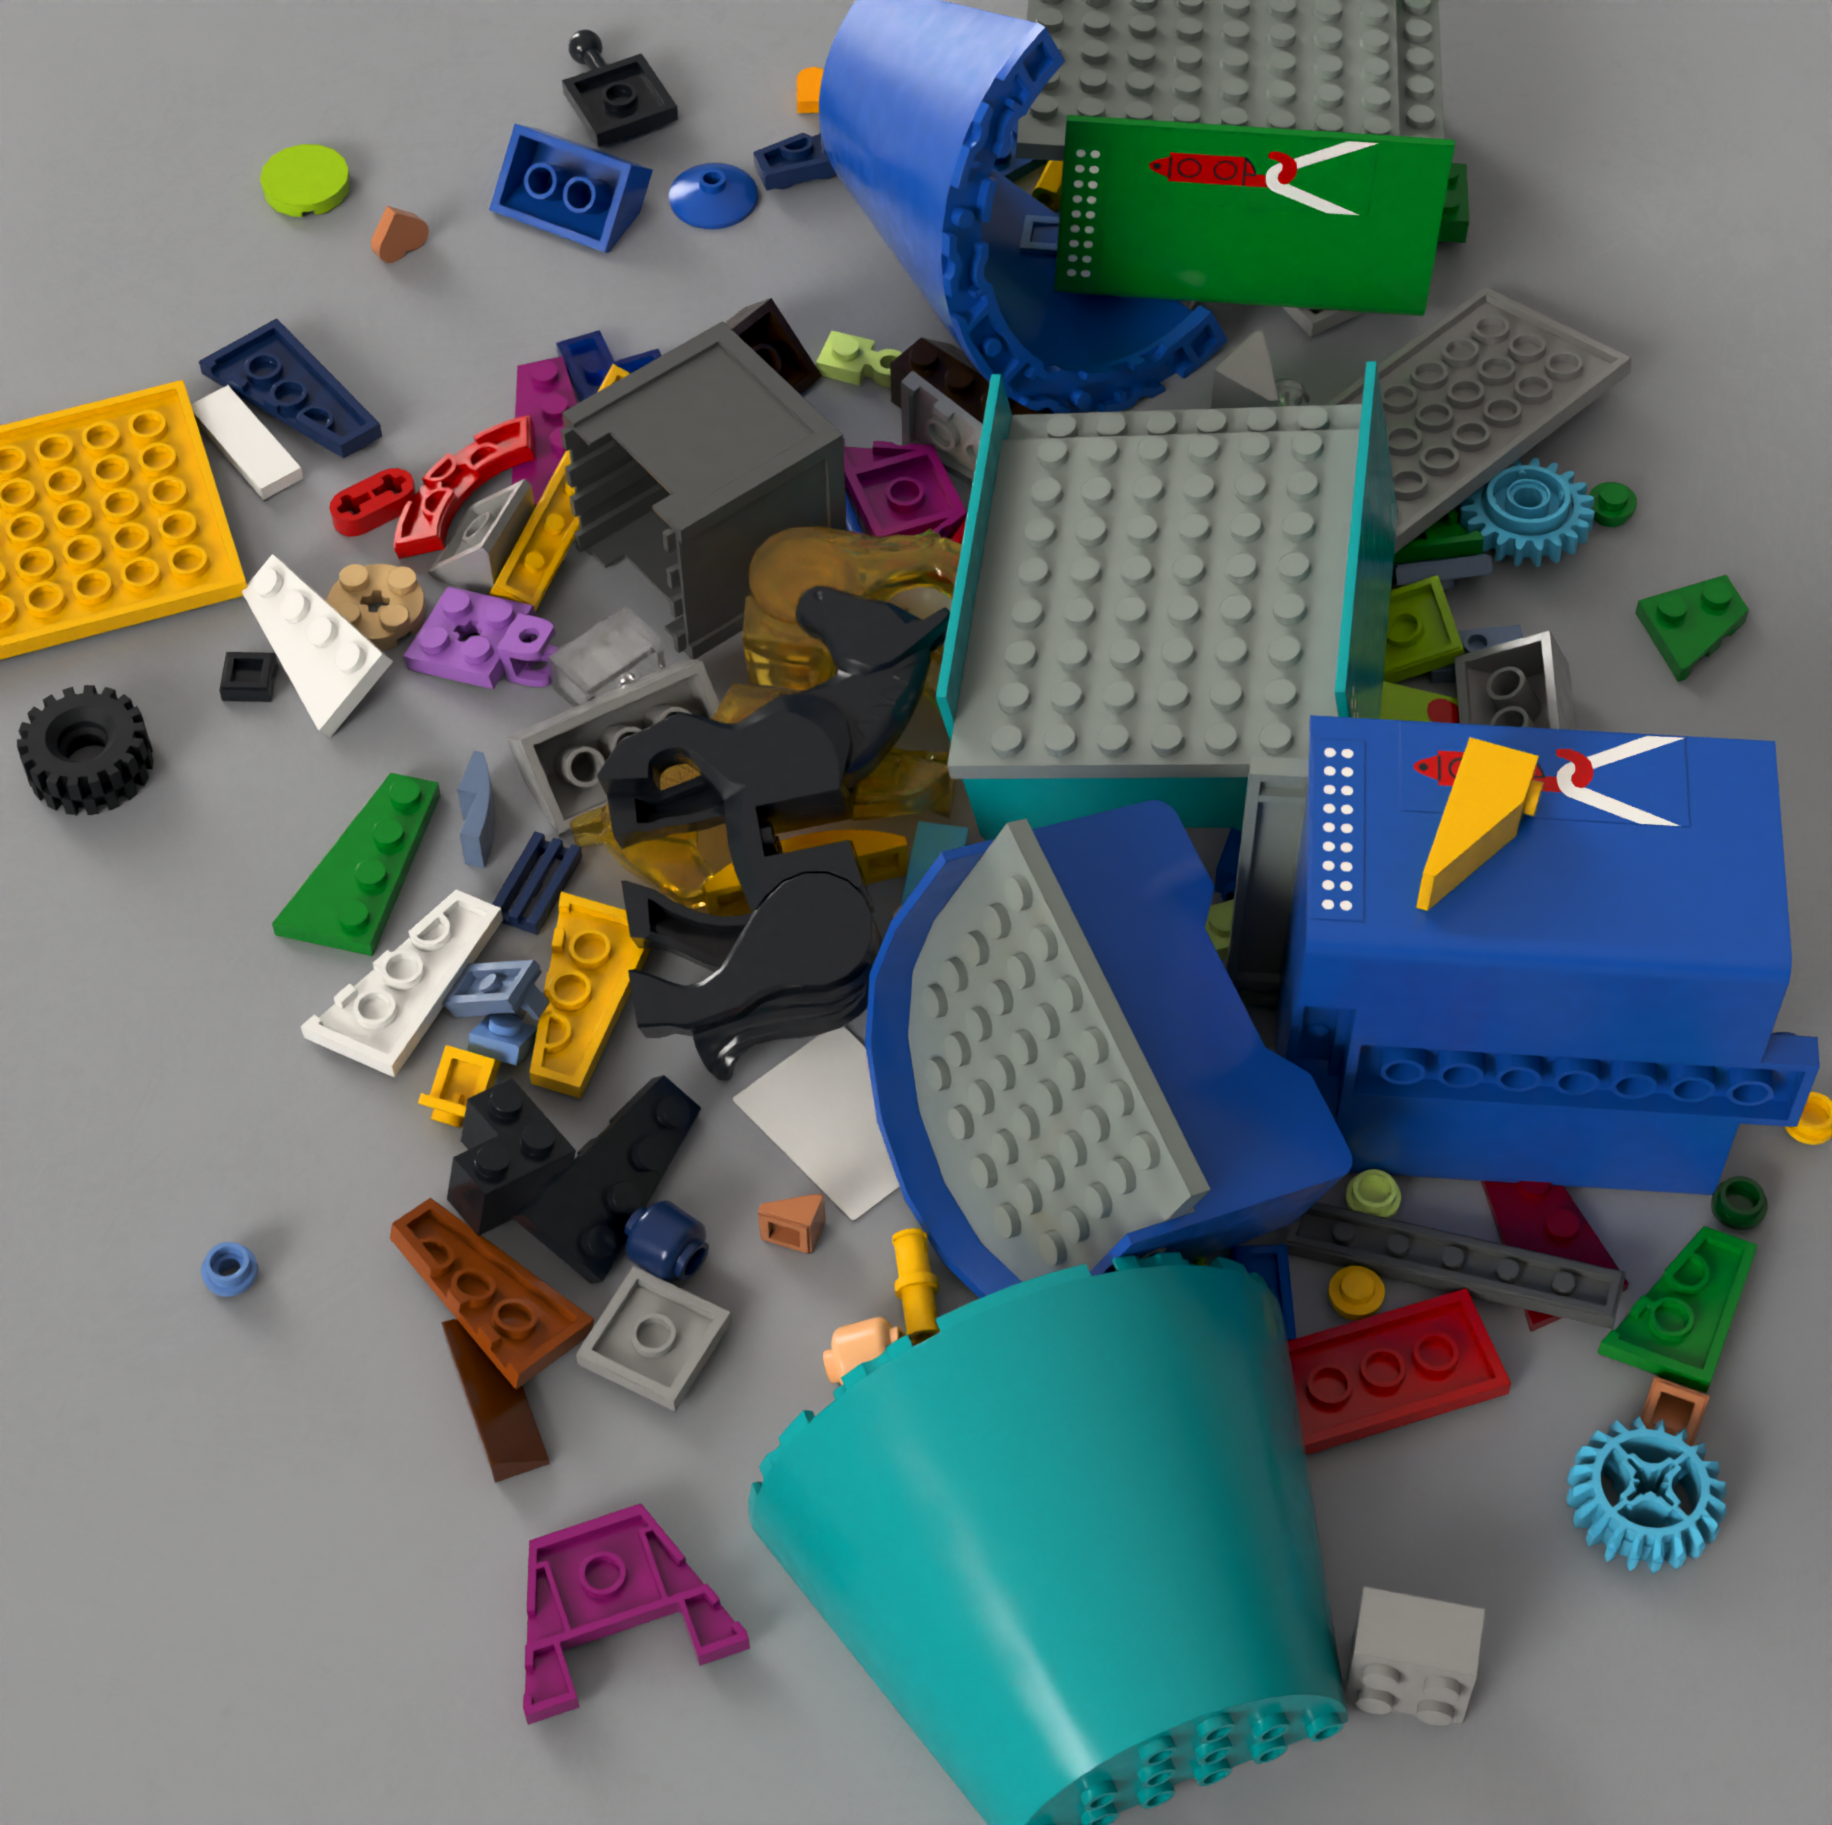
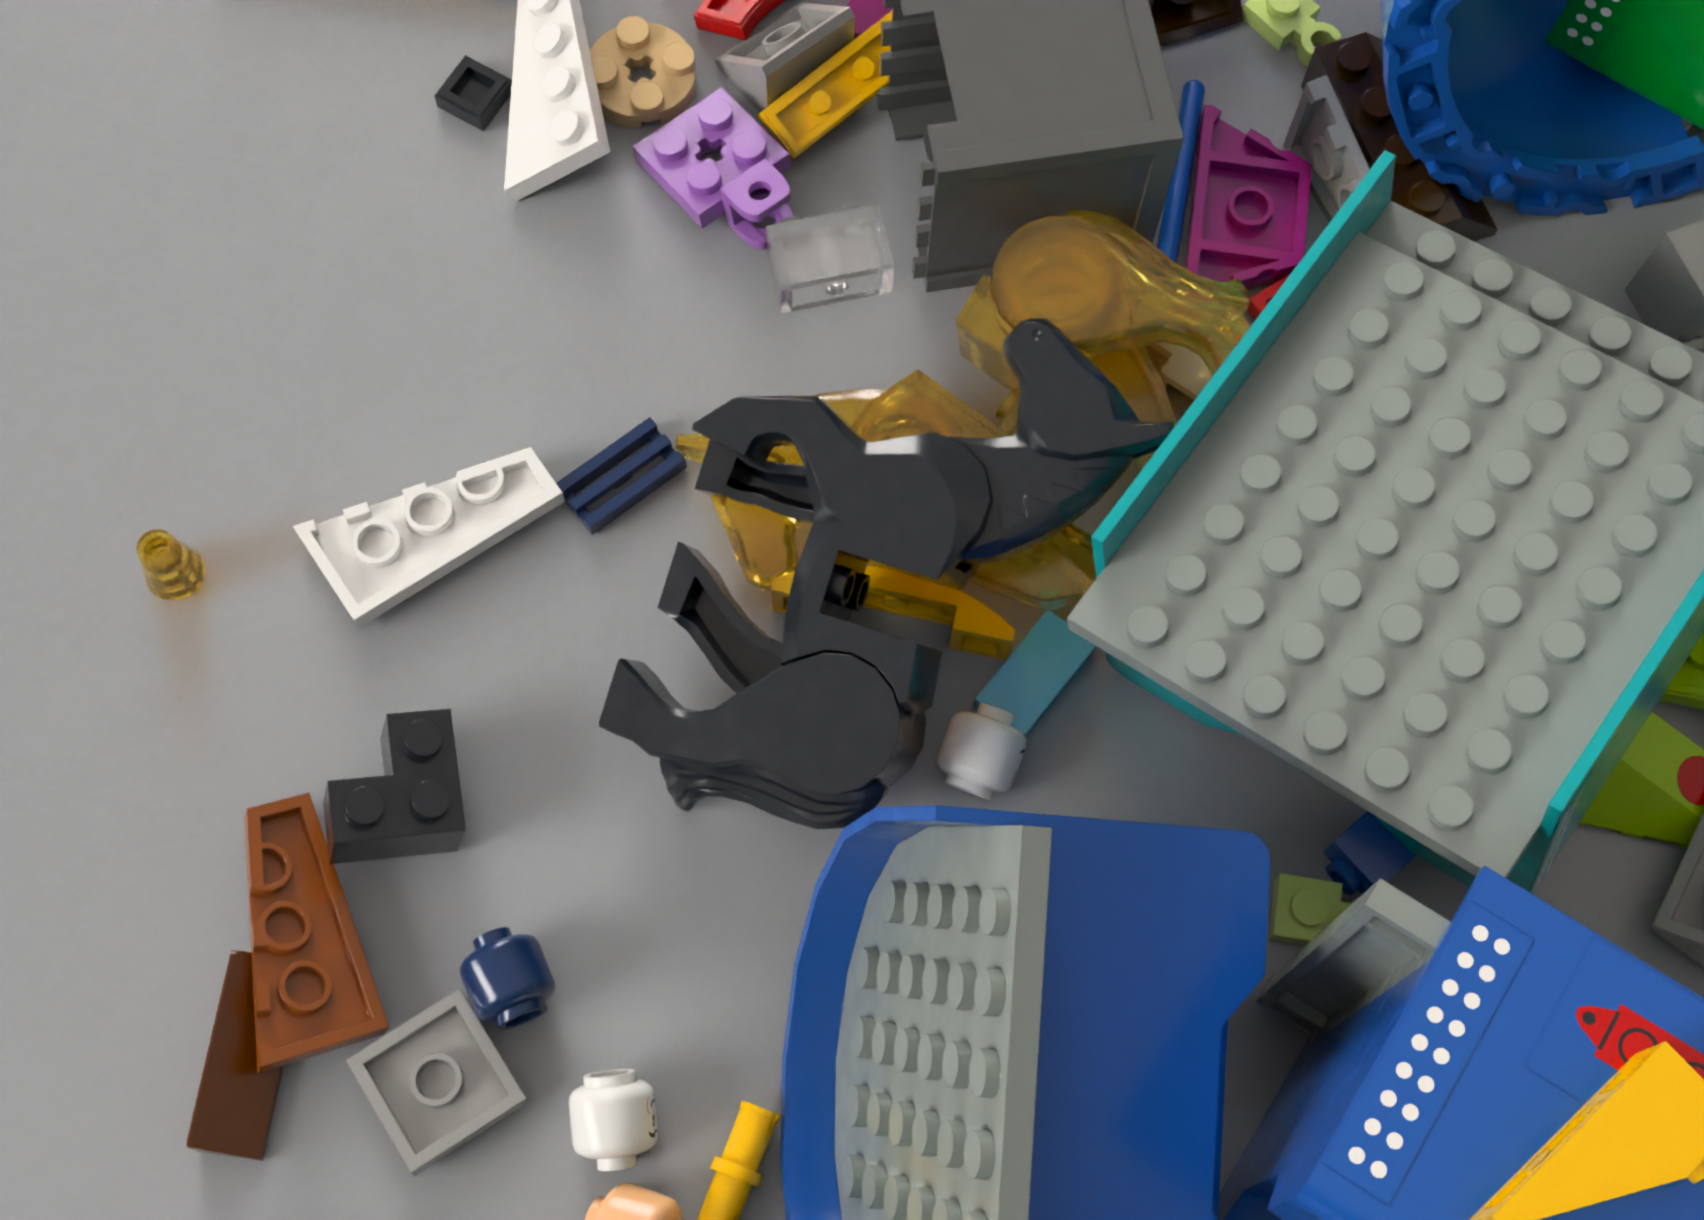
camera: 25 degrees right, 15 degrees up
(82, 722) = (262, 67): black tyre -> none
(217, 1097) = (169, 565): none -> clear yellow cone
(227, 1256) = (67, 752): medium blue plate -> none
(360, 877) = (456, 377): green wing -> none
(457, 1079) = (409, 679): yellow bracket -> none
(477, 811) = (613, 353): sand blue slope -> none
(498, 989) = (501, 590): sand blue plate -> none
(502, 1038) = (482, 645): medium blue plate -> none
(569, 749) = (786, 346): light grey slope -> none
(585, 992) = (602, 619): yellow wing -> none
(591, 1200) = (494, 875): black wing -> none
(793, 1222) = (652, 1027): nougat slope -> none
(803, 1294) = (613, 1118): none -> white head
(825, 1120) = (750, 907): white sticker -> none

